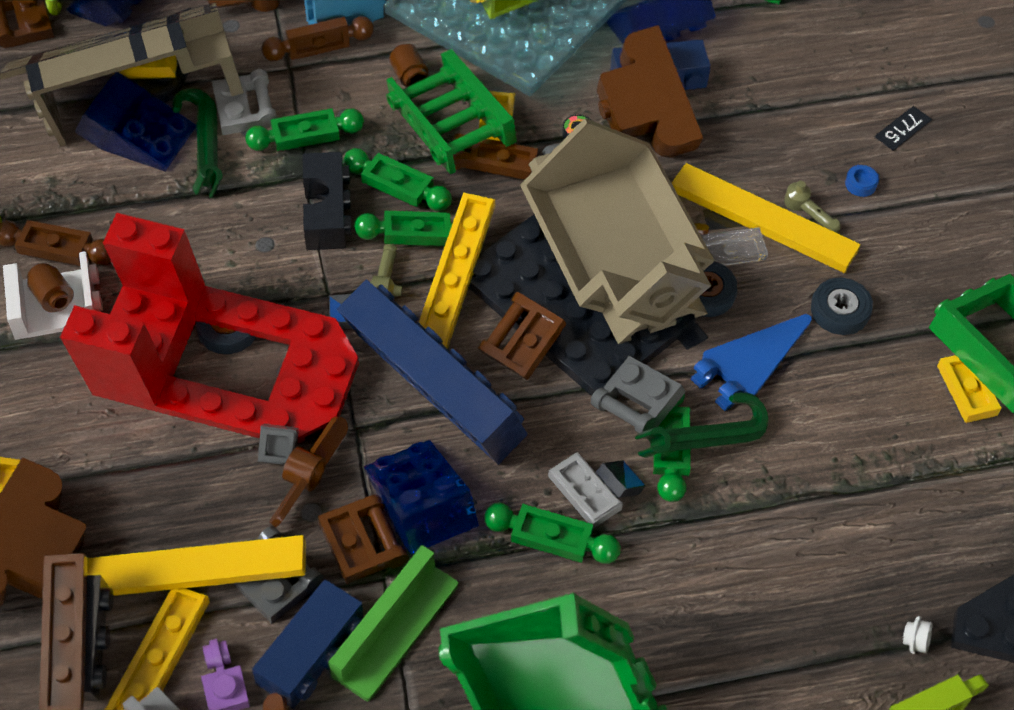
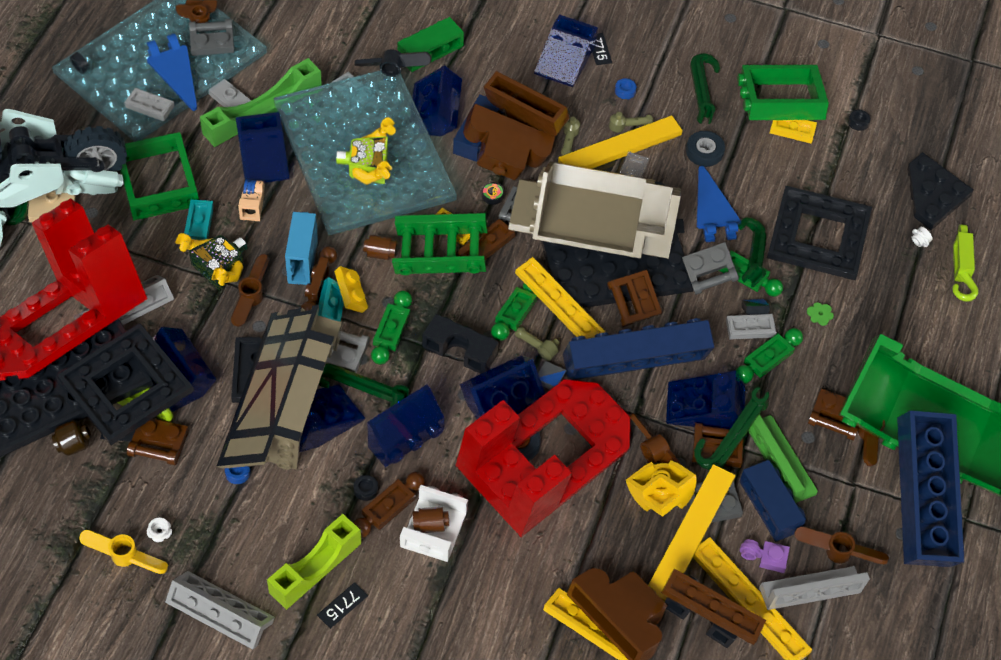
camera: 60 degrees left, 0 degrees up
(18, 99) = (237, 475): none -> blue tile
(69, 214) = (366, 488): none -> black tile
(163, 195) = (405, 426): none -> clear blue slope
(241, 499) = (662, 486): none -> yellow brick
(277, 443) = (629, 454): dark grey tile -> none
(282, 270) = (512, 381): none -> clear blue slope
(297, 62) = (330, 300): none -> teal plate
(329, 69) = (351, 289): none -> yellow plate
(398, 180) = (470, 299): green plate -> none
(438, 540) = (735, 434): none -> dark green piece
(671, 558) = (820, 313): none -> bright green plant
(710, 80) = (526, 104): none -> reddish brown brick
(745, 158) = (571, 130): none -> olive piece
(788, 557) = (842, 263): none -> black plate
(857, 91) = (566, 50): none -> clear blue slope
(942, 251) = (704, 104): none -> dark green piece

